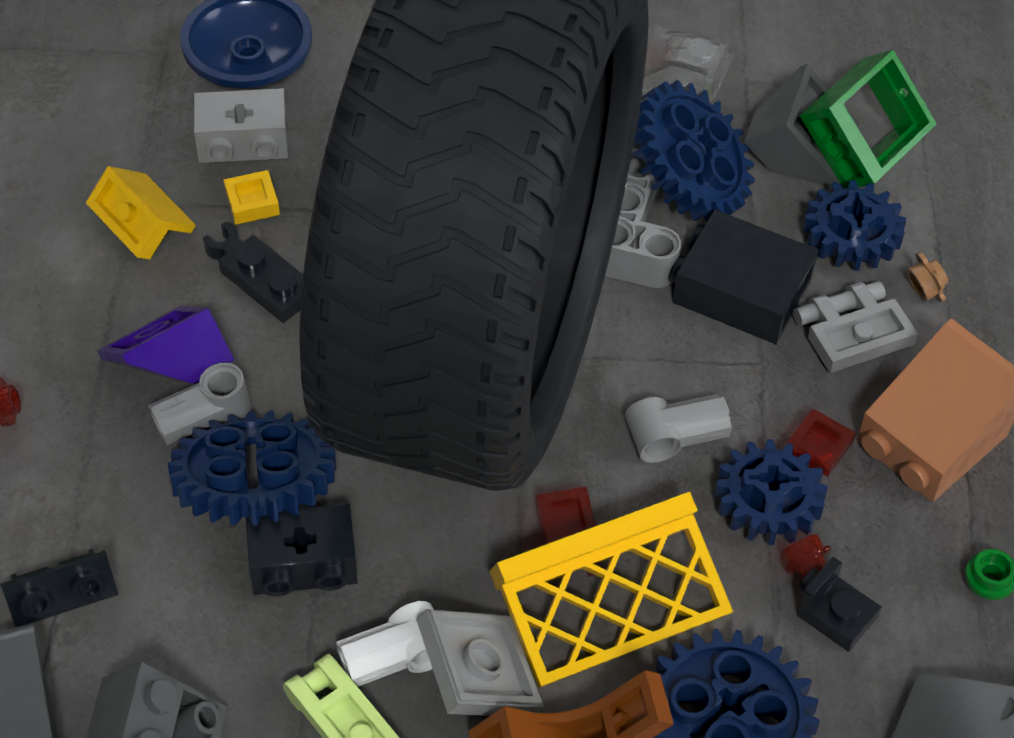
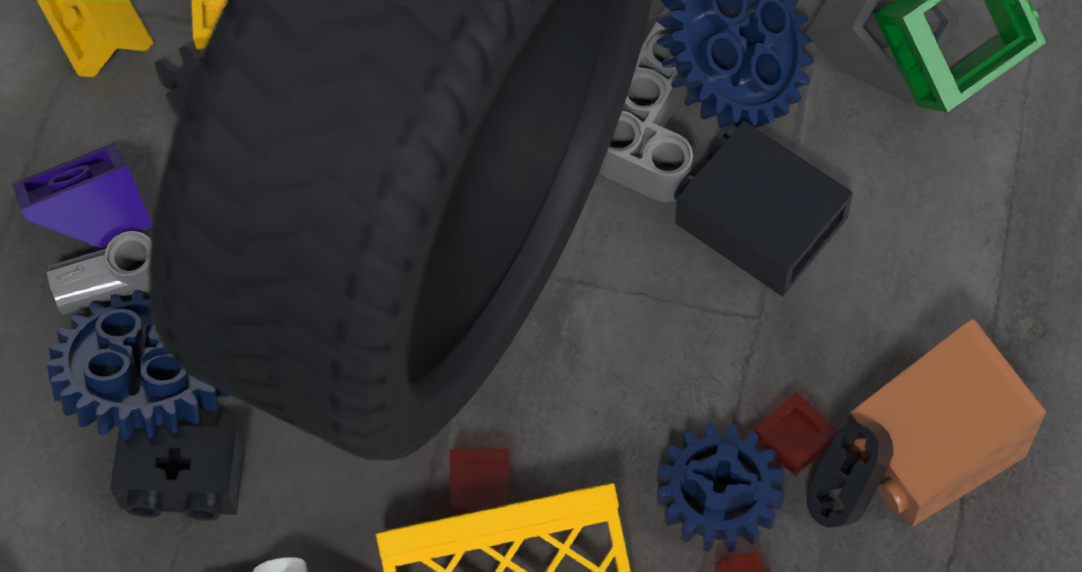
camera: 15 degrees right, 10 degrees up
(665, 428) = (620, 386): light grey piece -> none
(854, 225) = (939, 159): dark blue gear -> none
(859, 335) = (881, 303): light grey plate -> none
(887, 466) = (843, 471): none -> black beam
(927, 278) = (981, 244): medium nougat plate -> none

